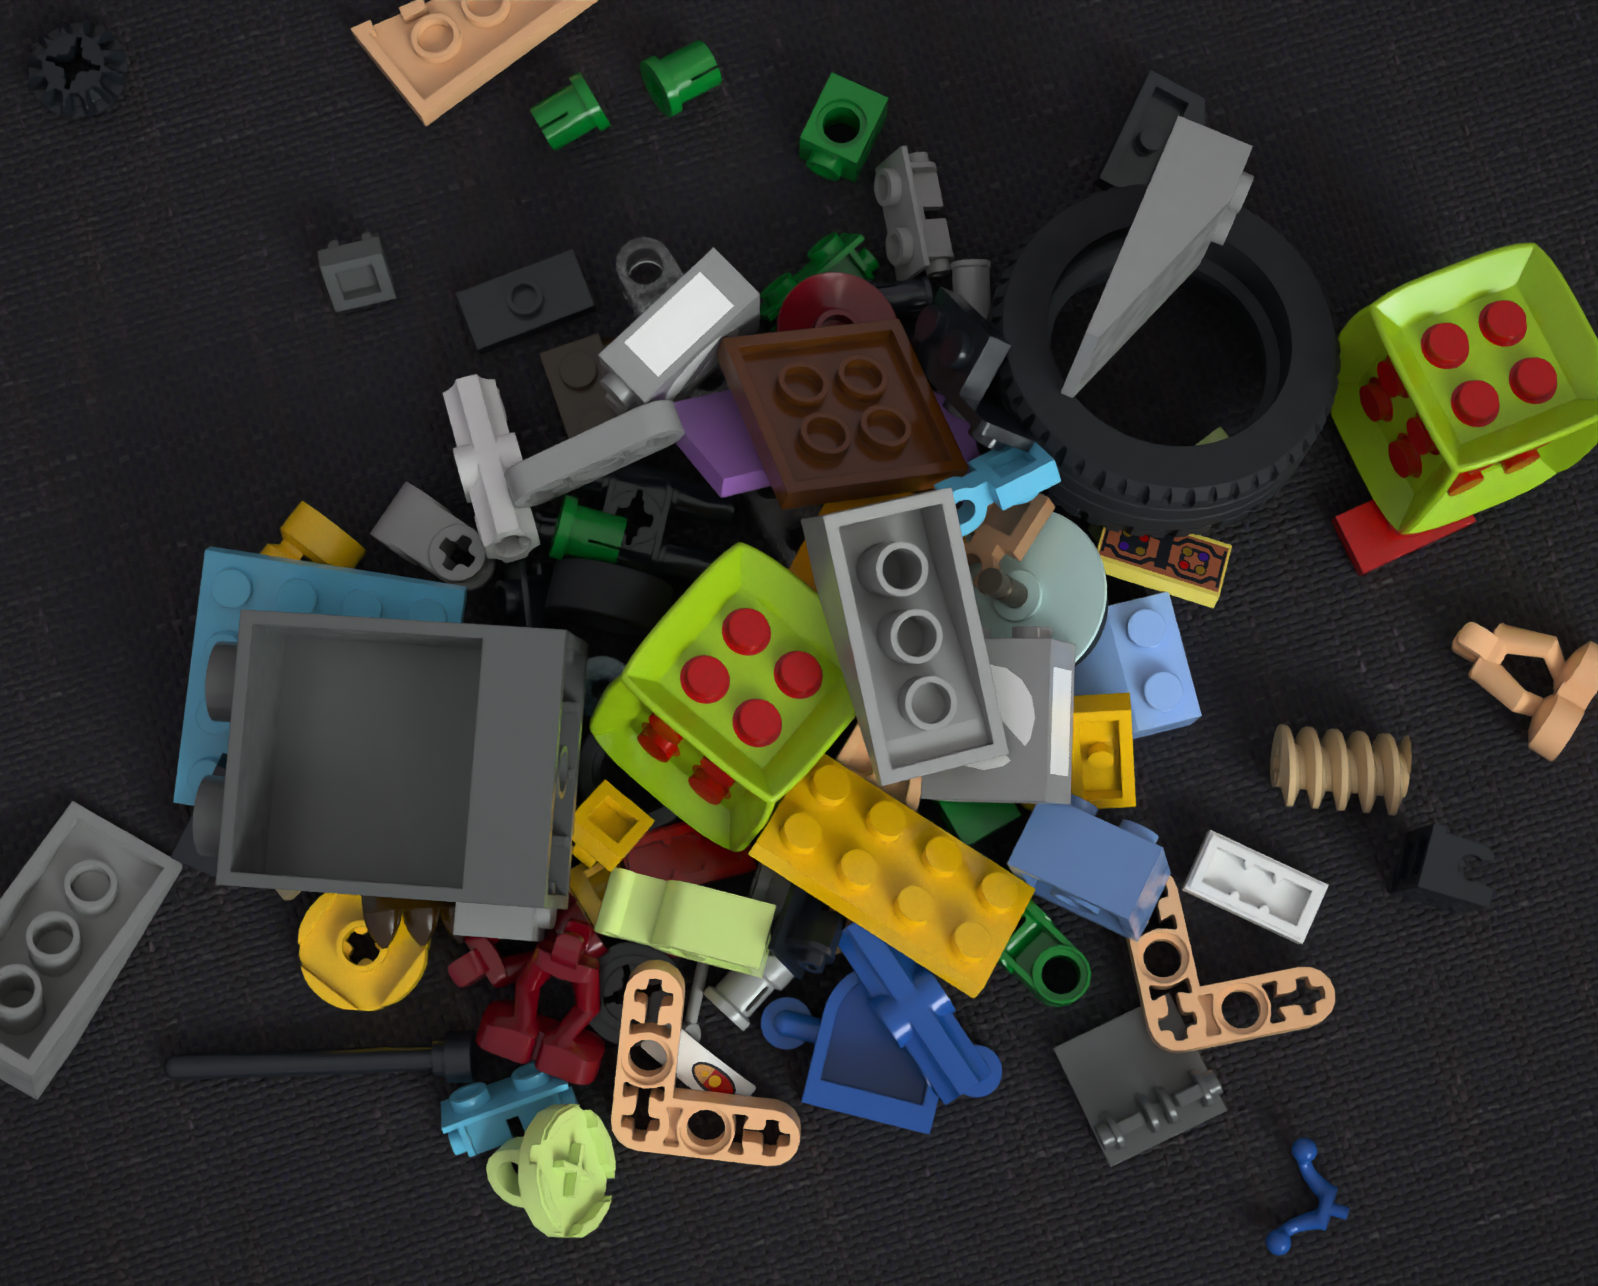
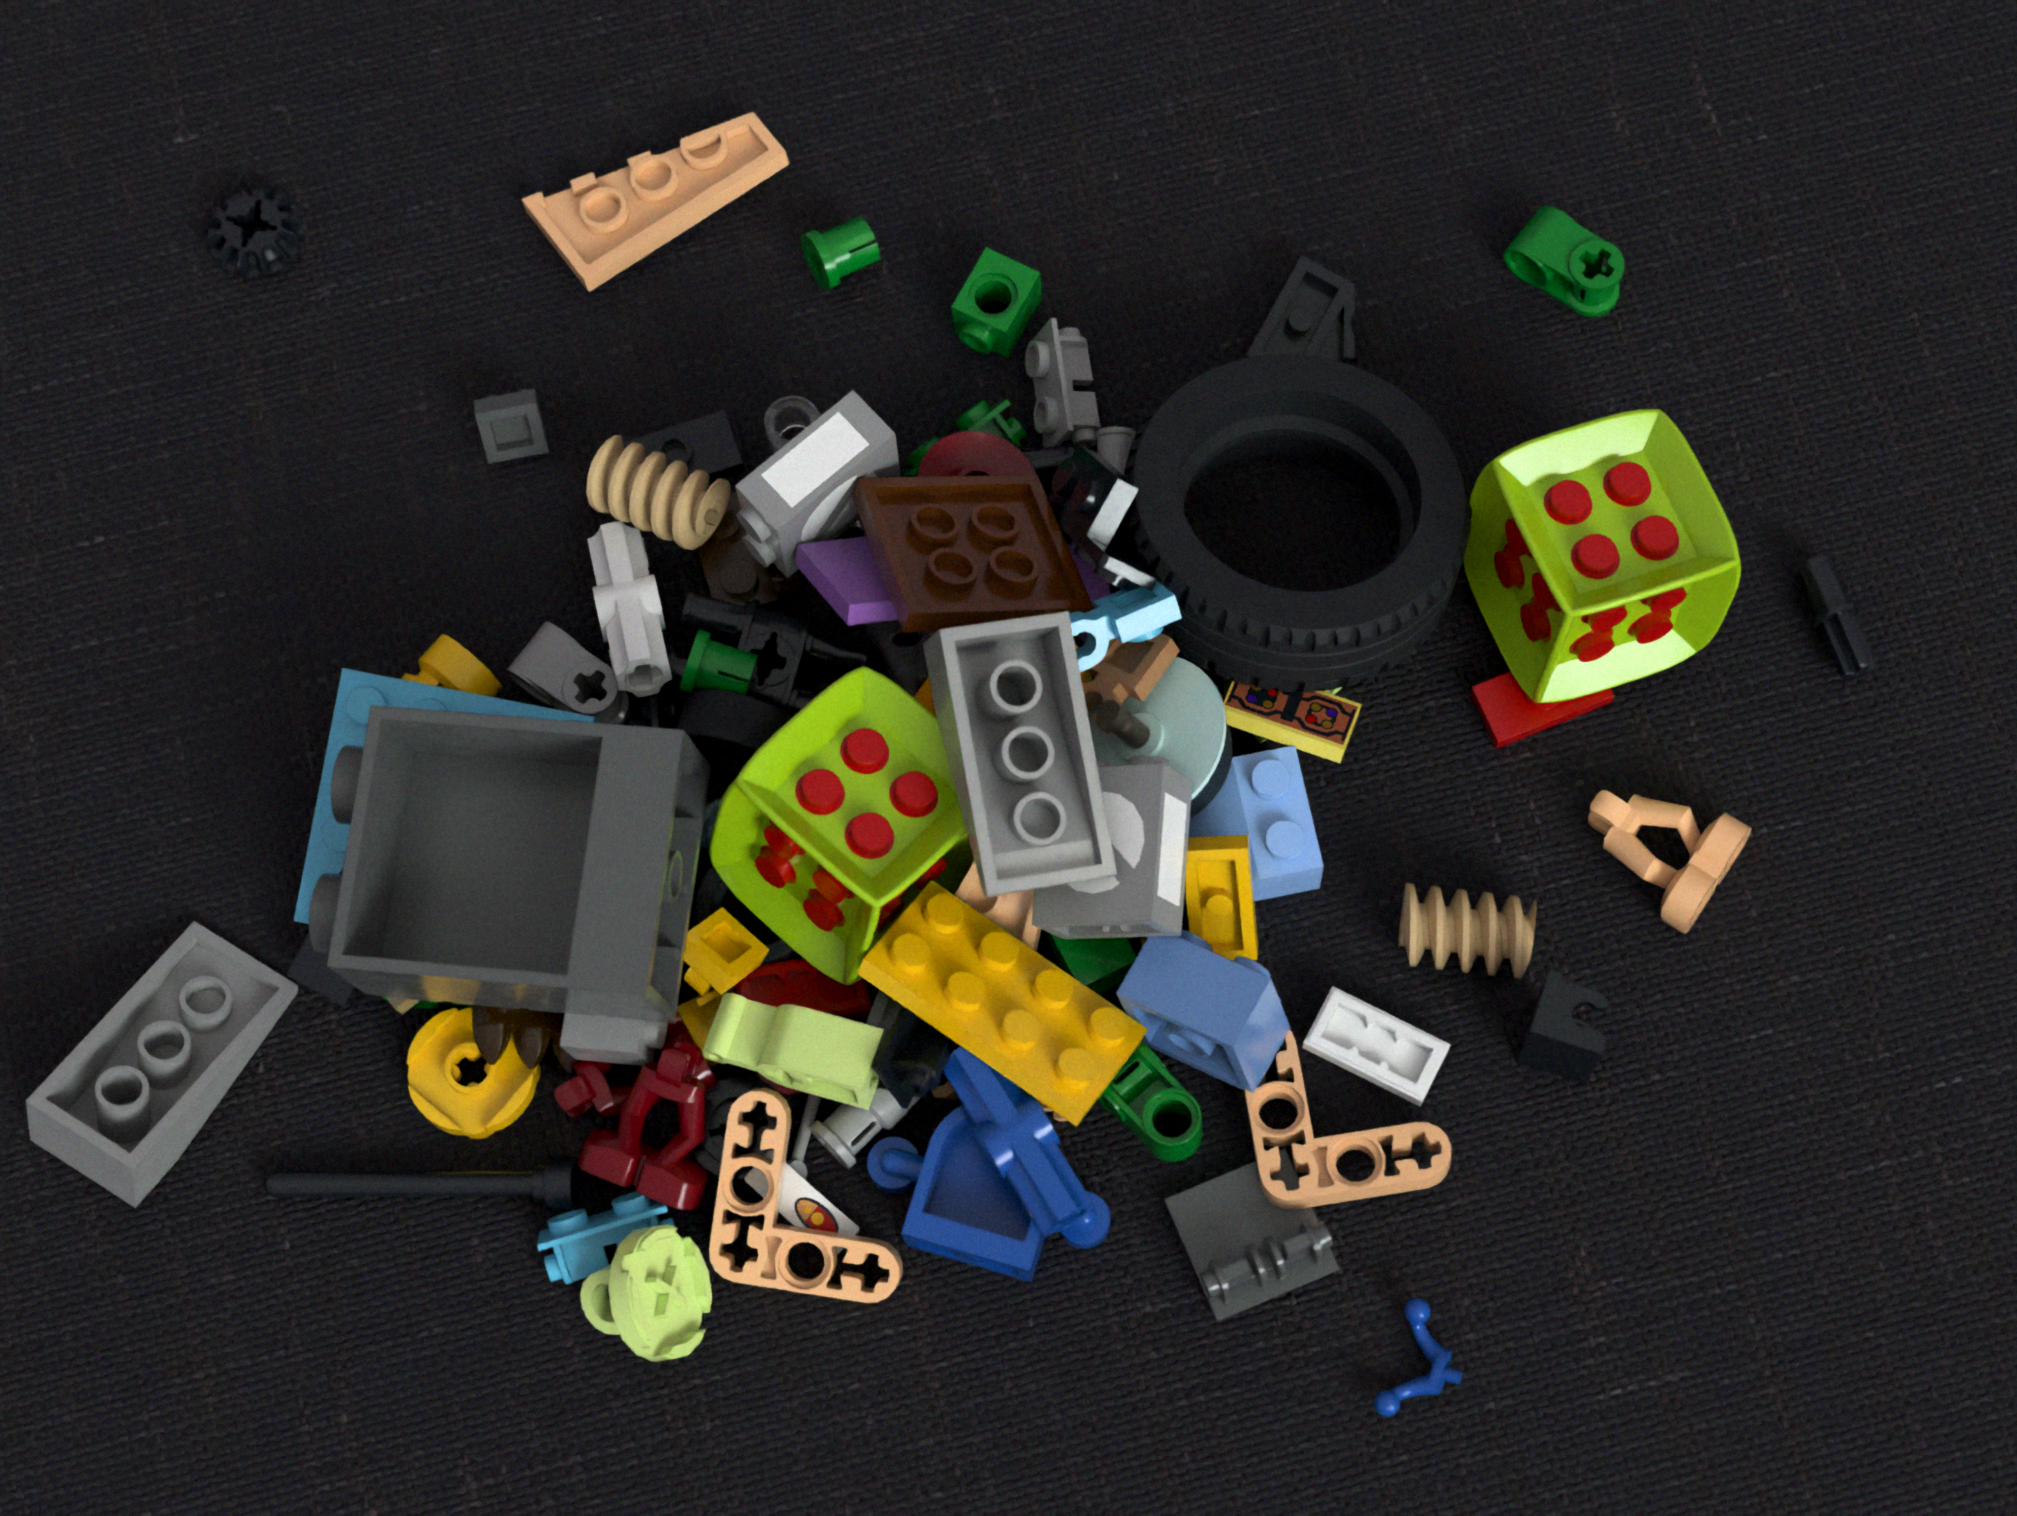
camera: 10 degrees right, 10 degrees down
(510, 351) = (656, 495): none -> tan piece
(569, 113) = (729, 282): green bush -> none
(594, 453) = (727, 586): light grey beam -> none
(1183, 210) = (1289, 399): light grey slope -> none
(1411, 62) = (1565, 259): none -> green piece

